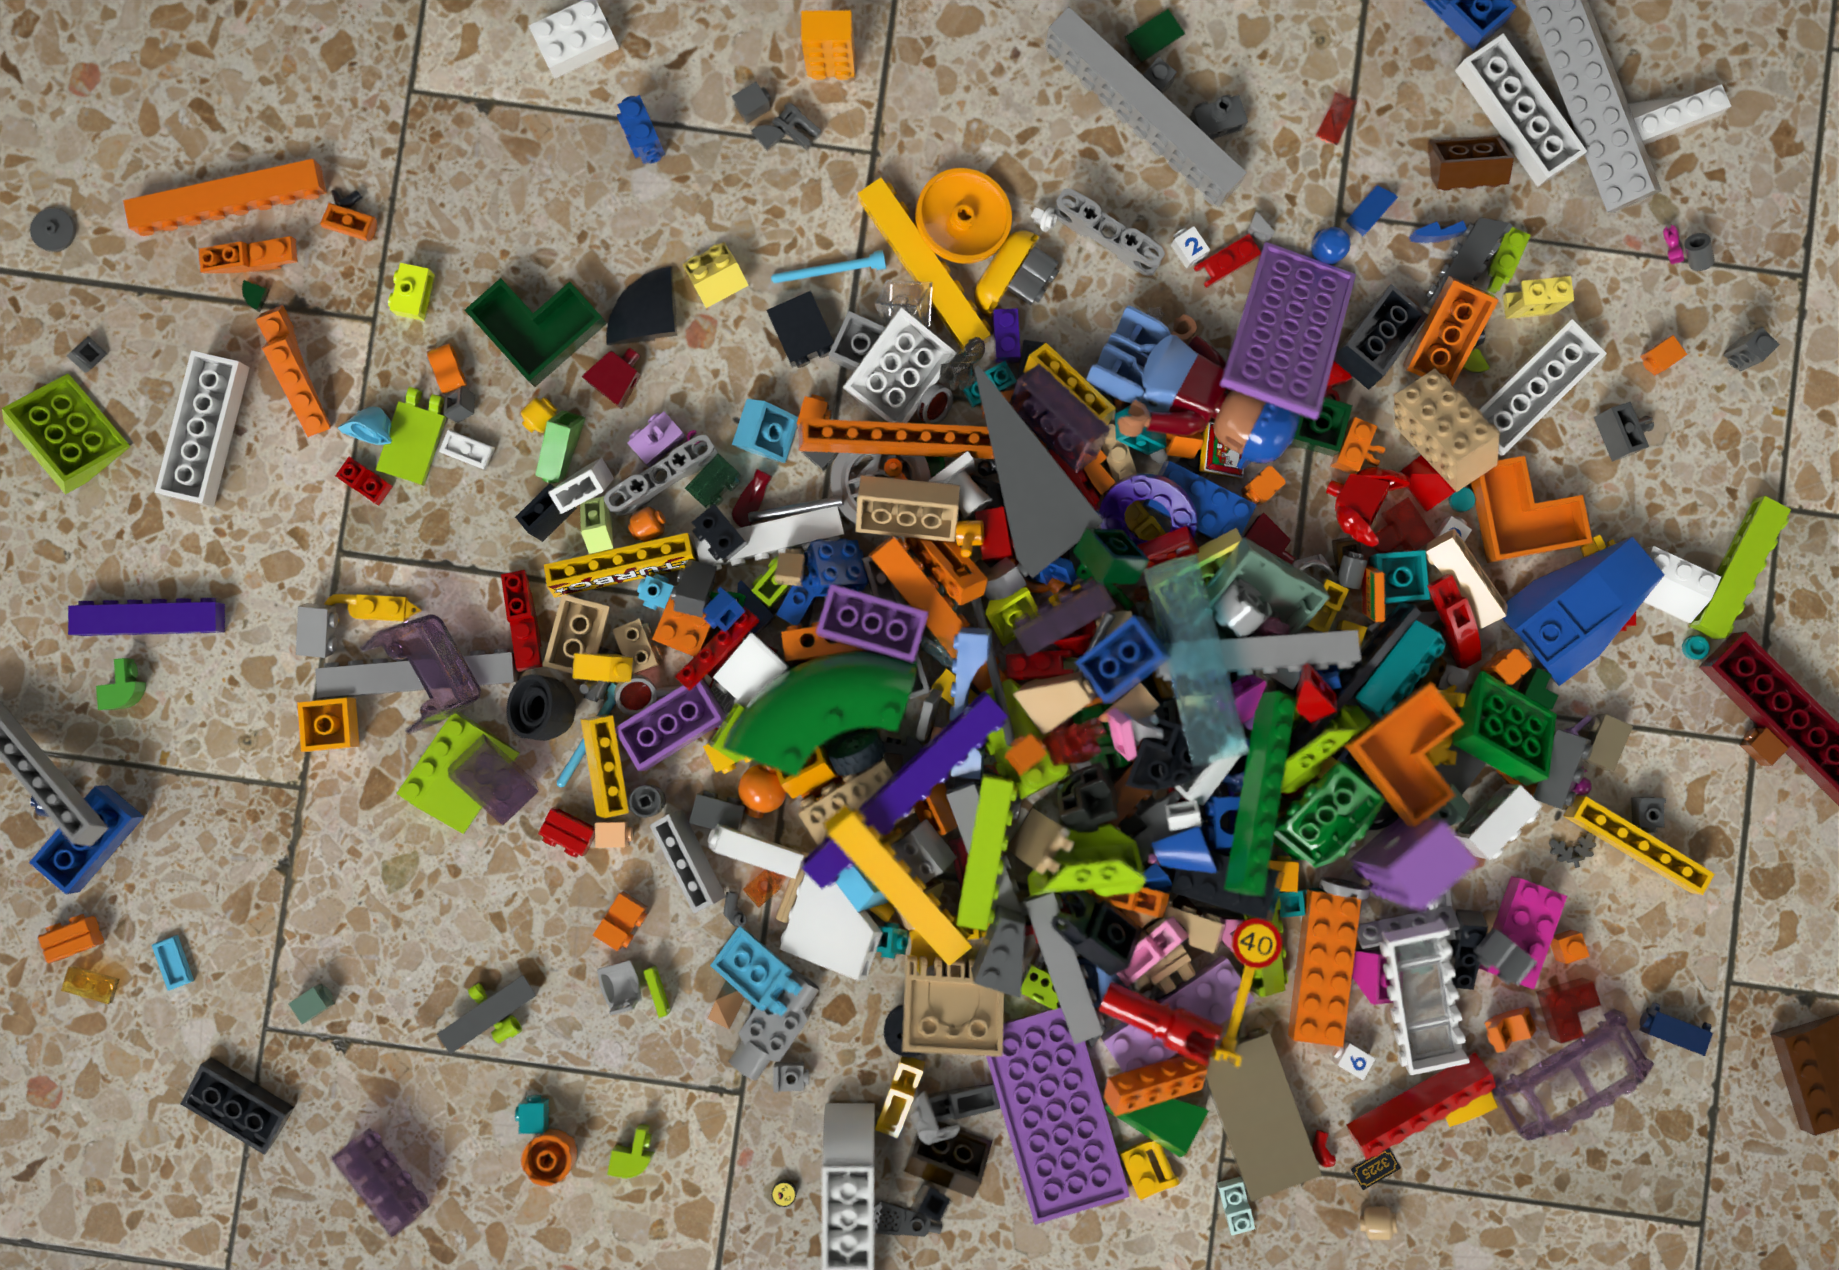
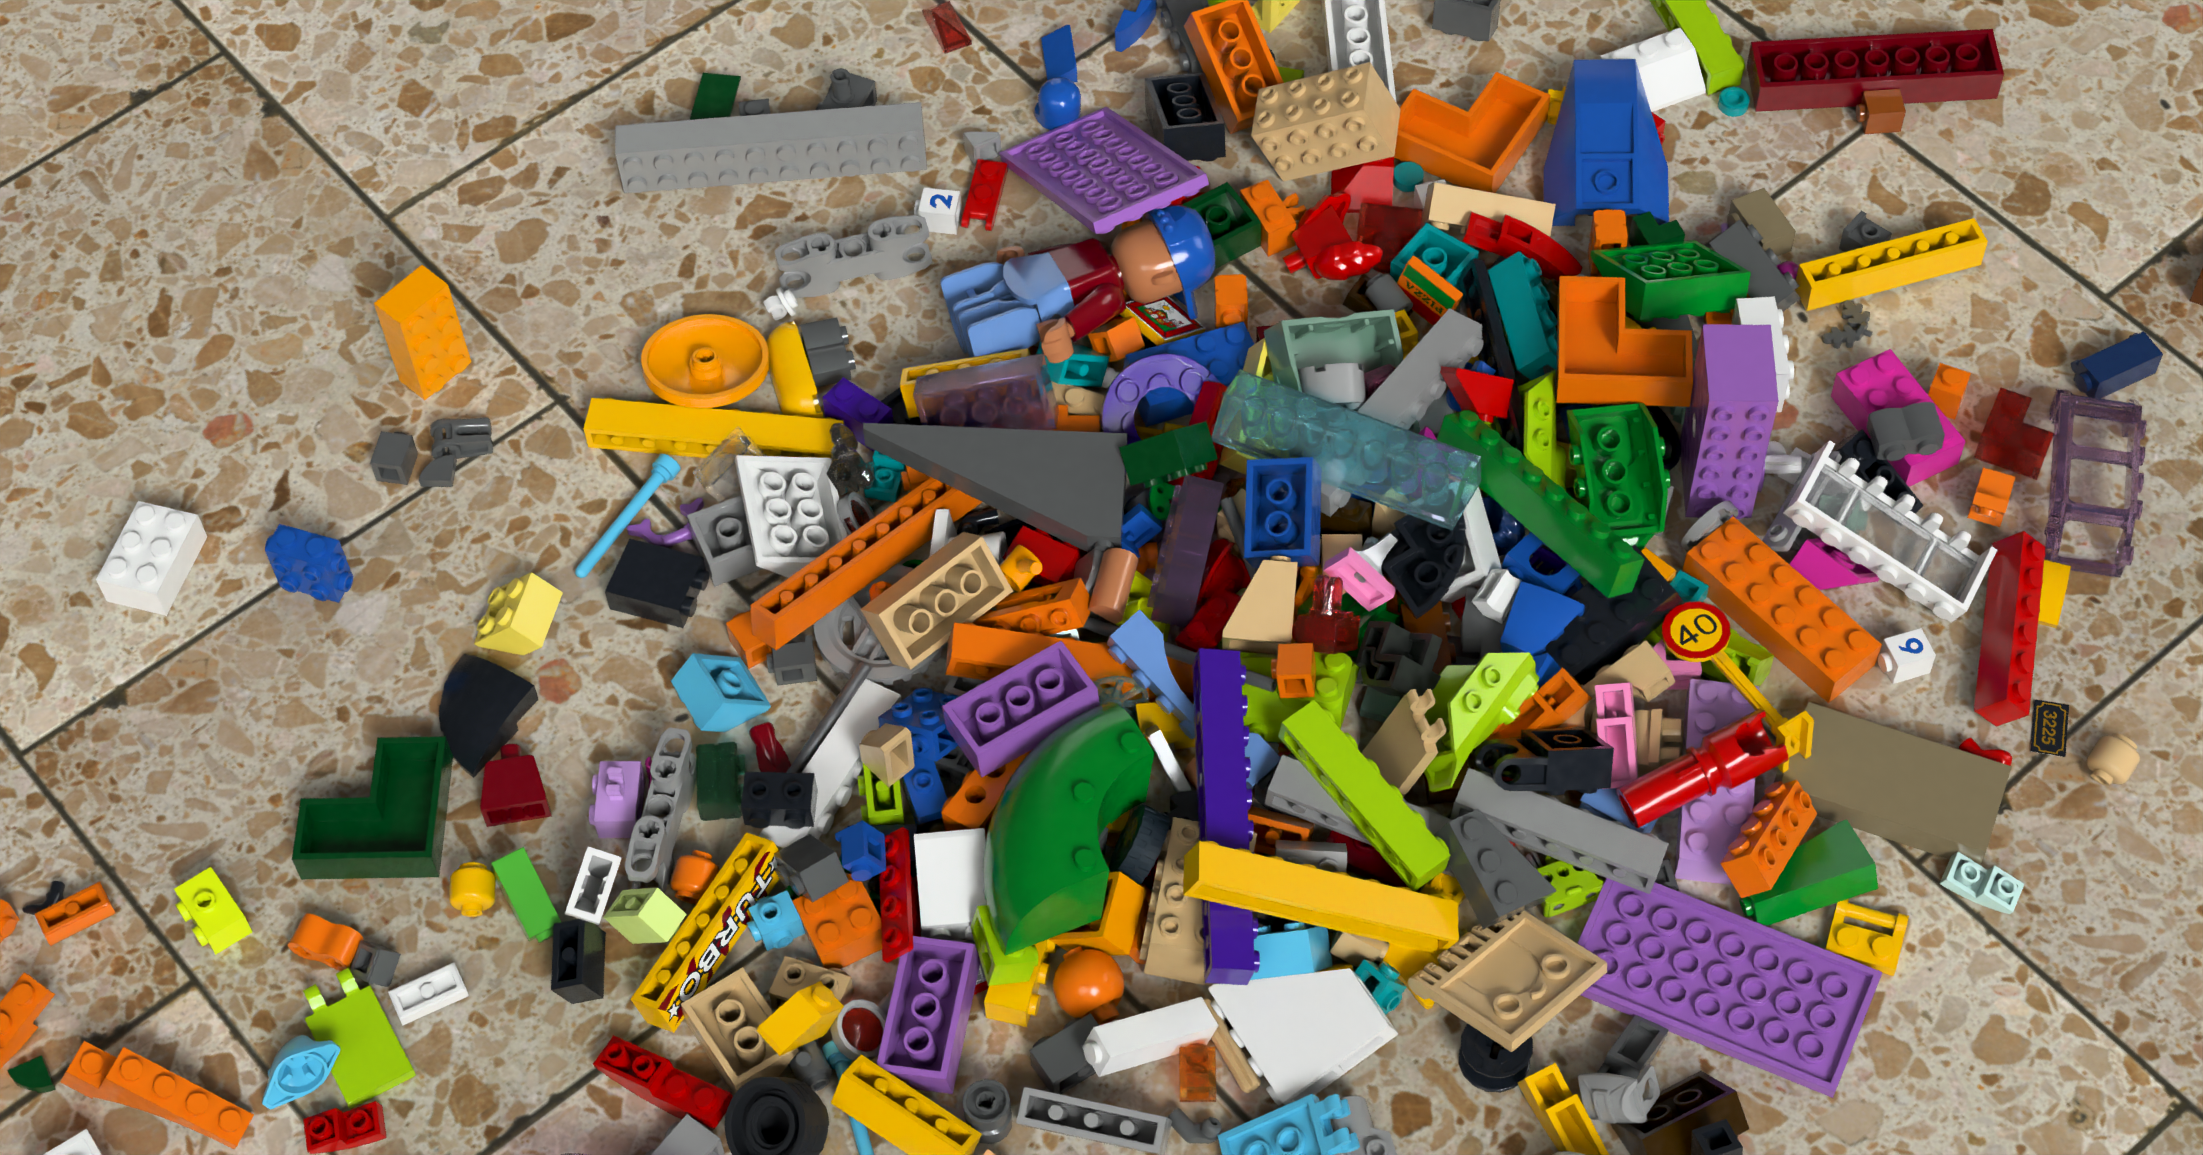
camera: 45 degrees left, 30 degrees down
(841, 308) = (644, 529): none -> medium lavender helmet
(1003, 596) = (1113, 584): none -> nougat brick

